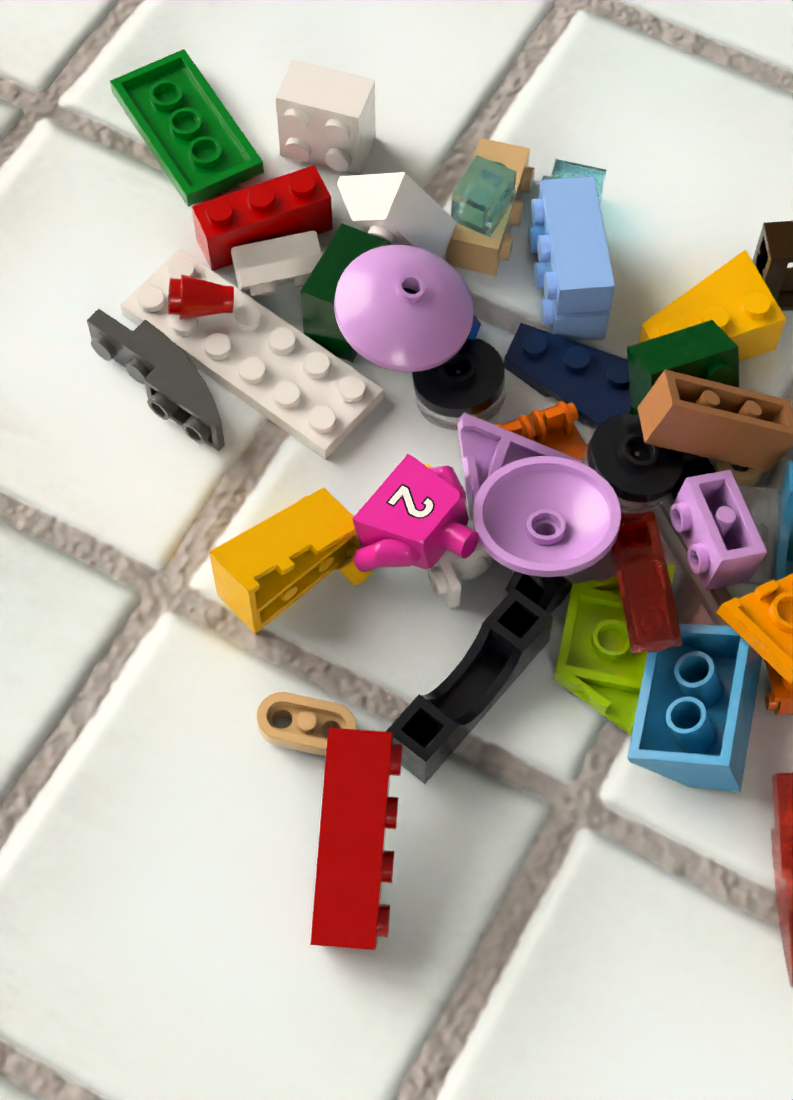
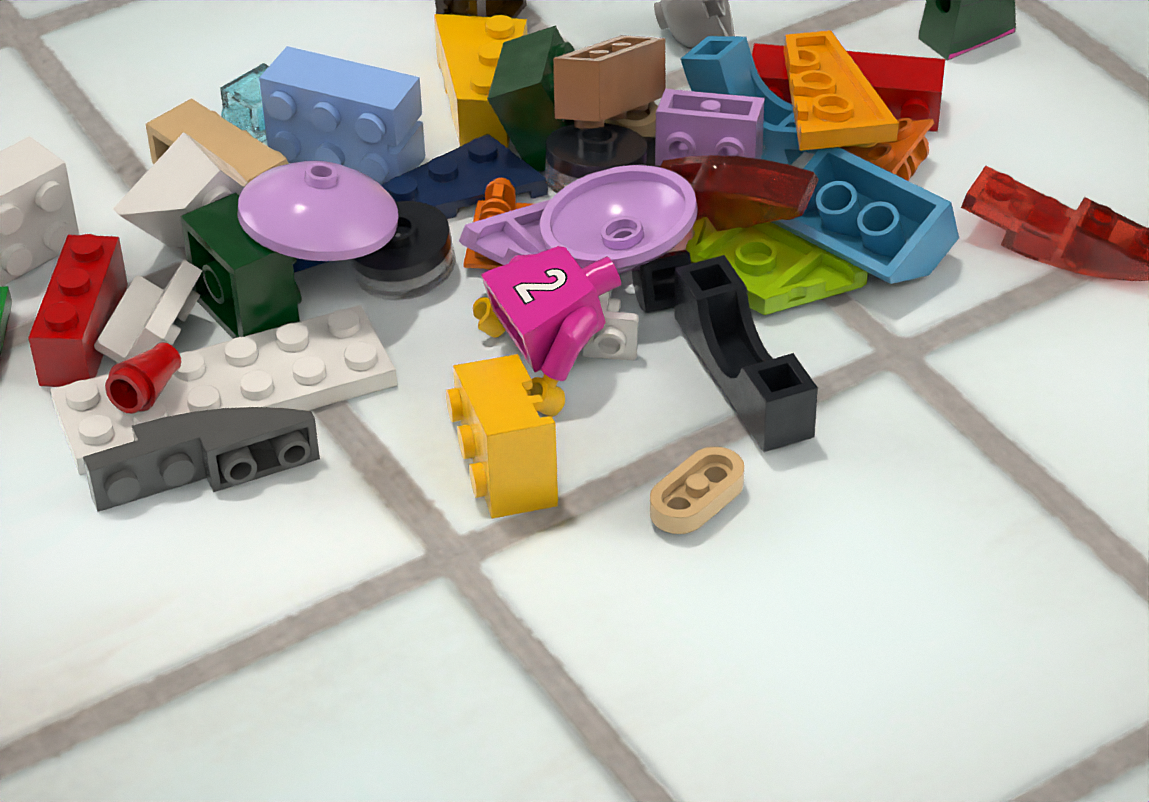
camera: 60 degrees left, 20 degrees down
(353, 837) = (859, 471): red brick -> none
(483, 195) = (230, 128): clear light blue brick -> none

